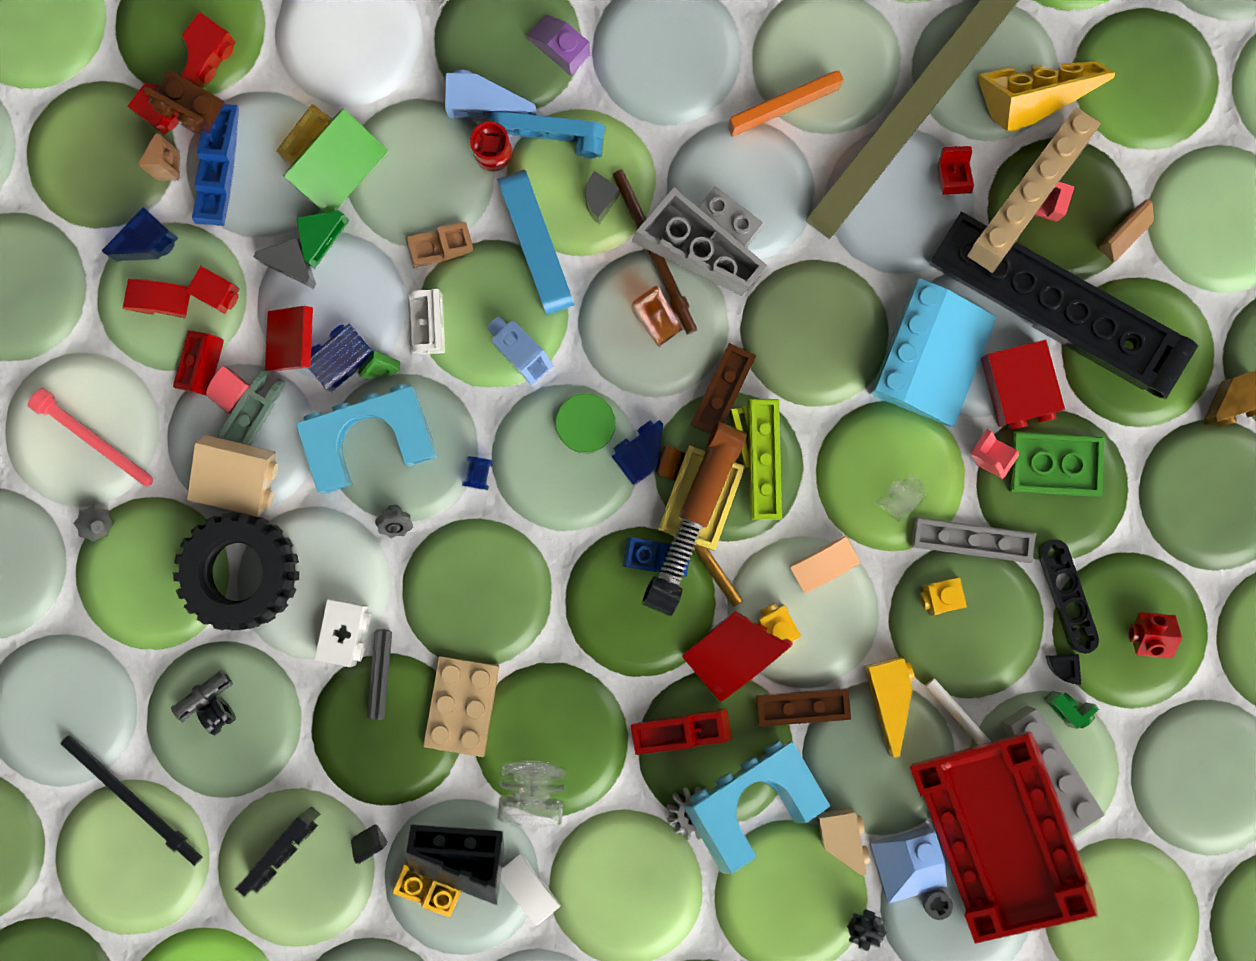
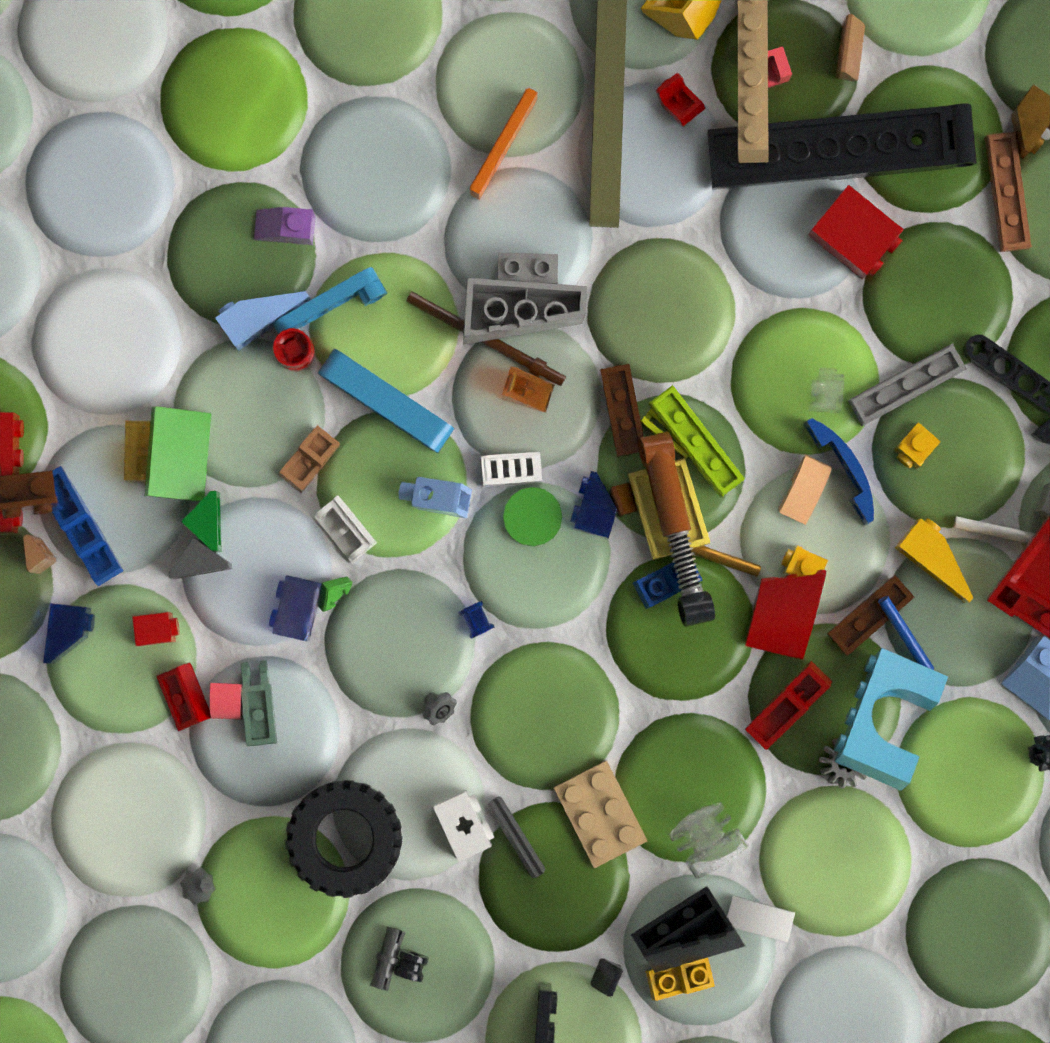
camera: 40 degrees left, 0 degrees up
(43, 403) = (87, 820): coral piece -> none
(157, 297) = (112, 668): red slope -> none
(232, 476) = (283, 765): tan brick -> none
(289, 338) = (246, 623): red tile -> none
(324, 434) = (331, 679): medium azure arch -> none
(574, 358) = (499, 458): none -> white slope
(600, 196) = (410, 326): dark grey brick -> none
(821, 736) = (904, 632): none -> blue bar
(841, 837) = (974, 694): tan slope -> none
(872, 531) = (863, 501): none -> blue slope
(933, 353) = (768, 259): medium azure slope -> none
(994, 455) = (874, 305): coral panel -> none
(1057, 464) = (929, 276): bright green tile -> none
(1173, 442) = (1007, 191): none -> nougat tile

